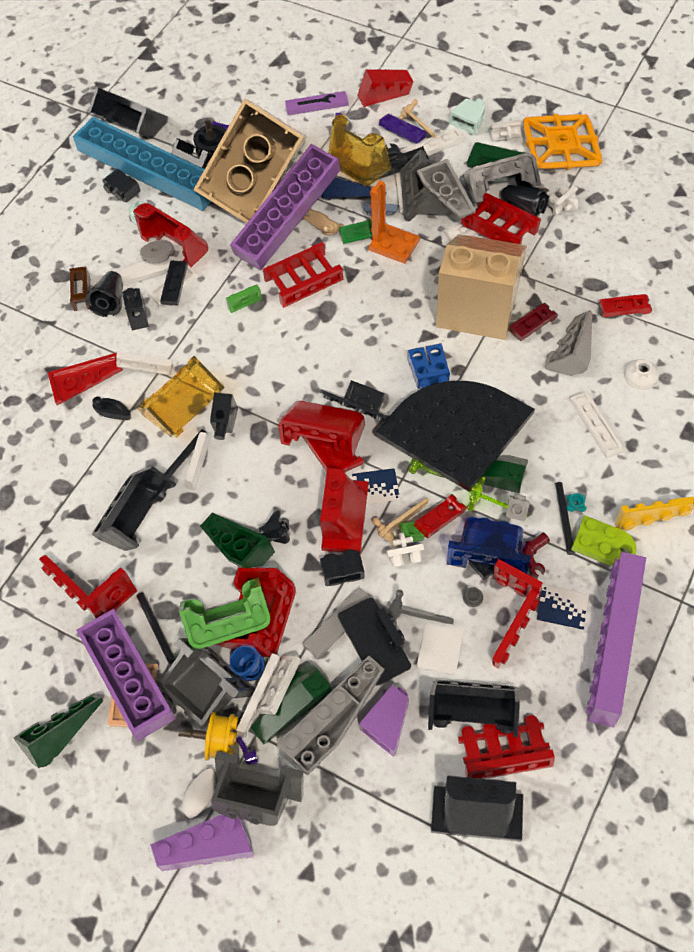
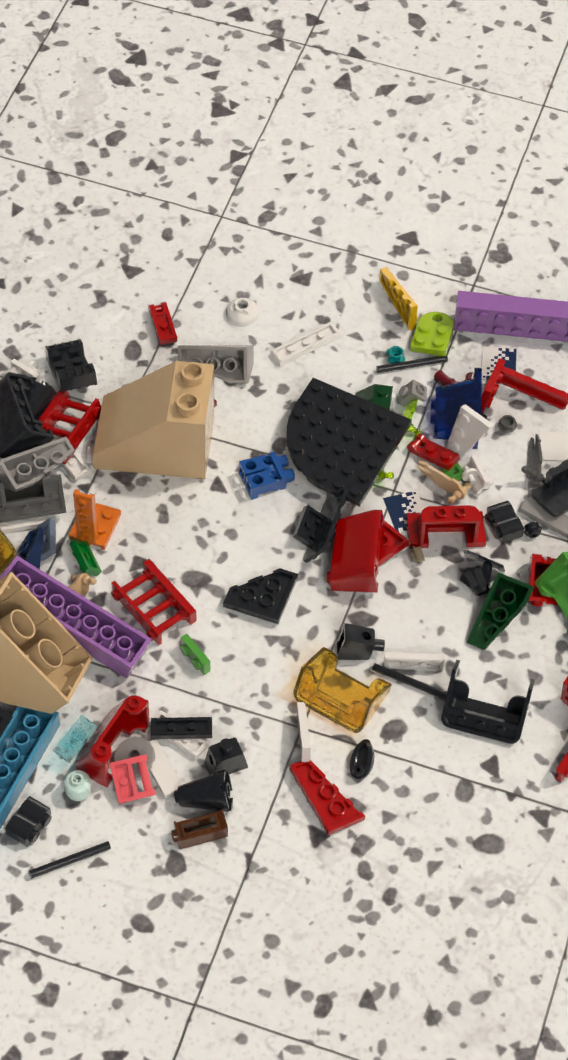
camera: 105 degrees left, 5 degrees down
(84, 209) = (69, 859): none -> black bar
(134, 246) = (125, 779): none -> coral plate
(180, 211) = (75, 738): none -> clear light blue brick
(292, 535) = (481, 559): none -> sticker
(294, 354) = (263, 596): none -> black plate
(317, 484) = (417, 554): none -> dark tan plate
(329, 595) = (532, 529): none -> black plate
(449, 533) = (467, 431): none -> white wing
(567, 231) = (70, 365): none -> black plate

